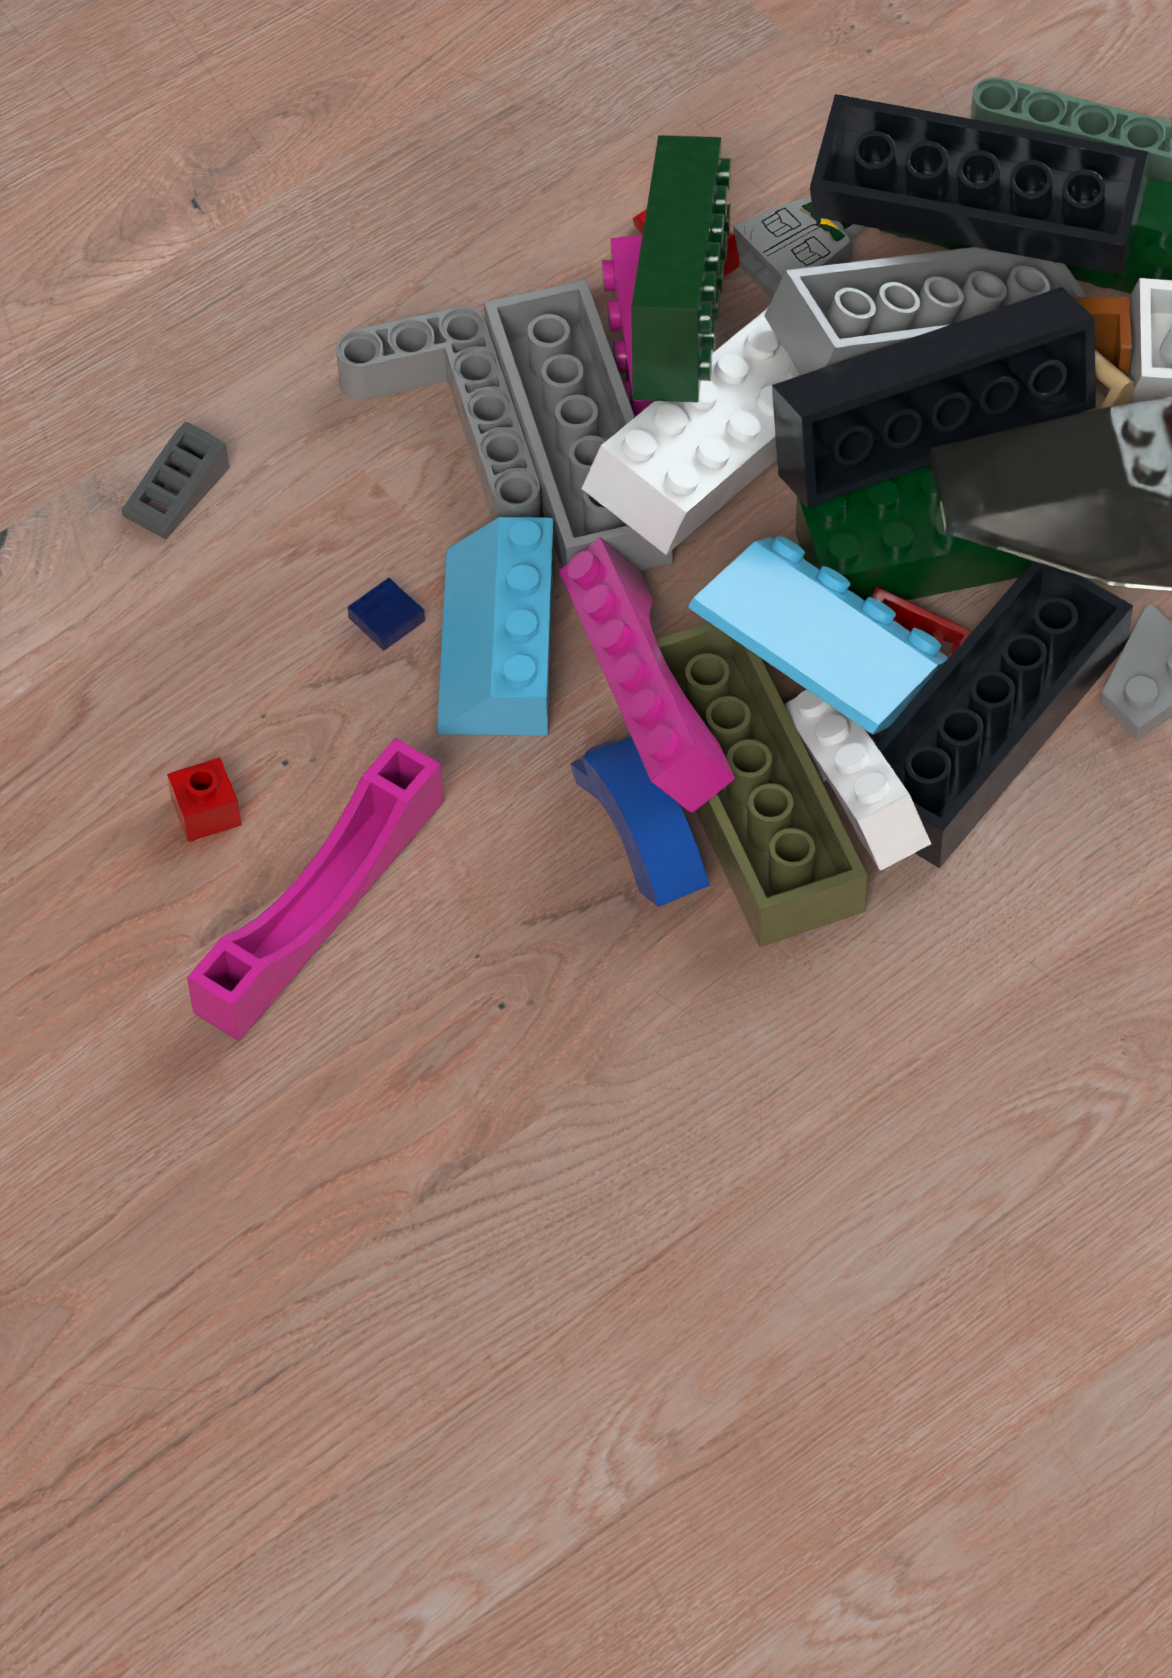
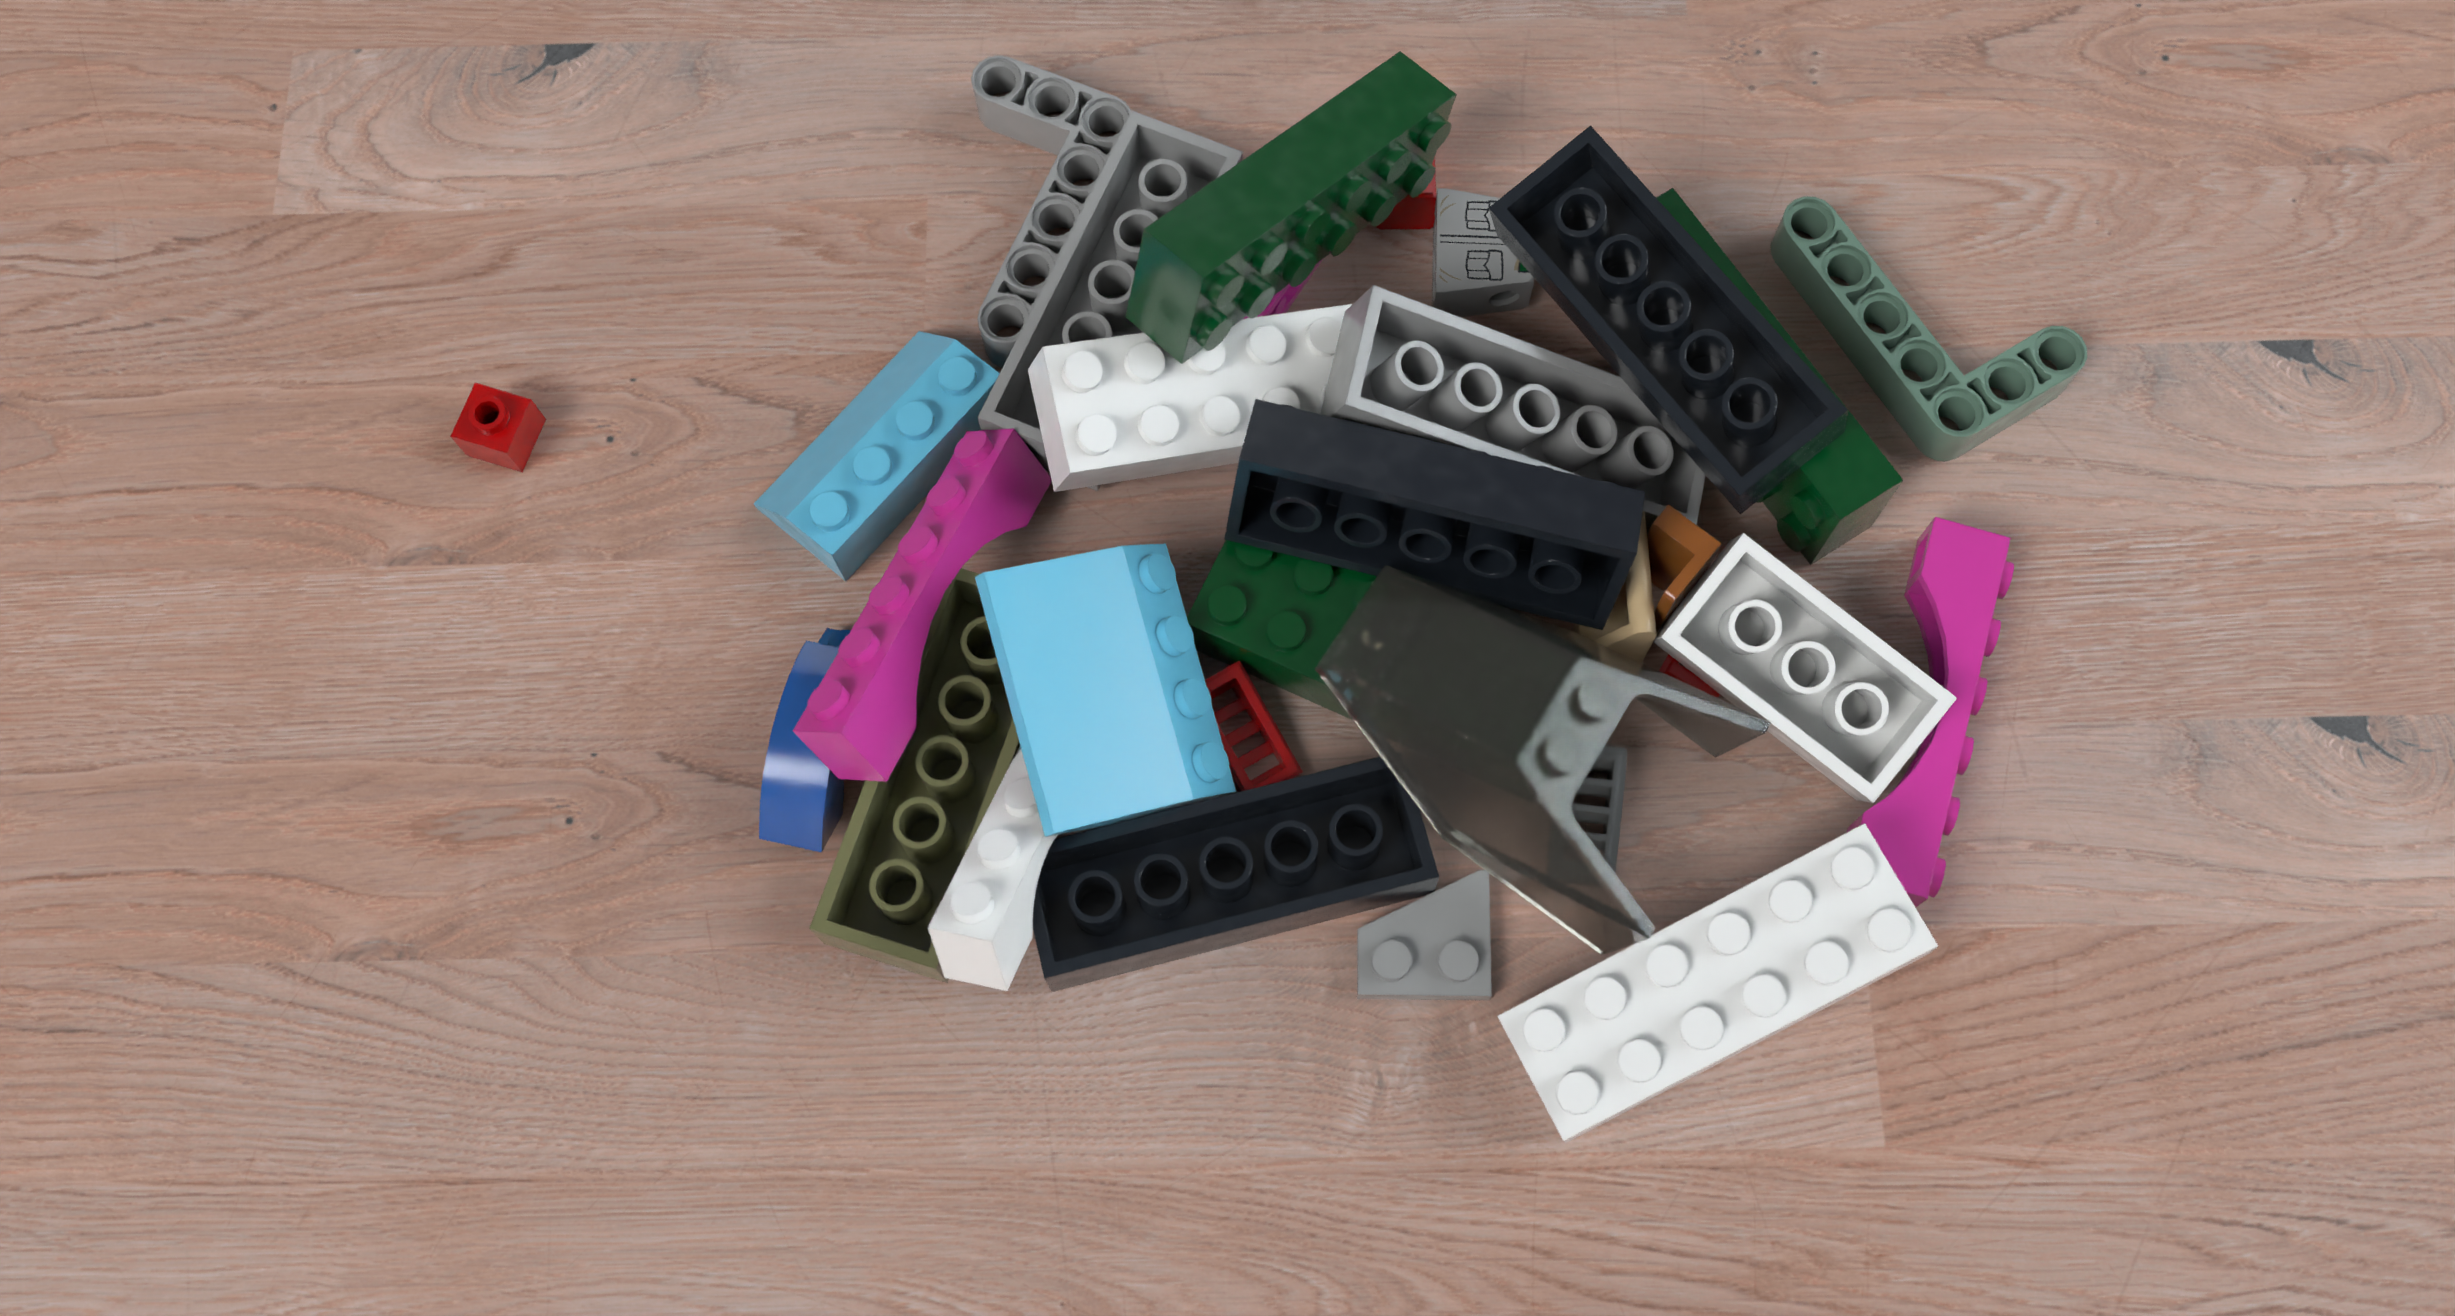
camera: 40 degrees right, 15 degrees up
(195, 453) = (764, 75): dark grey slope -> none
(261, 958) = (388, 624): dark pink arch -> none
(386, 614) = (811, 357): clear blue tile -> none

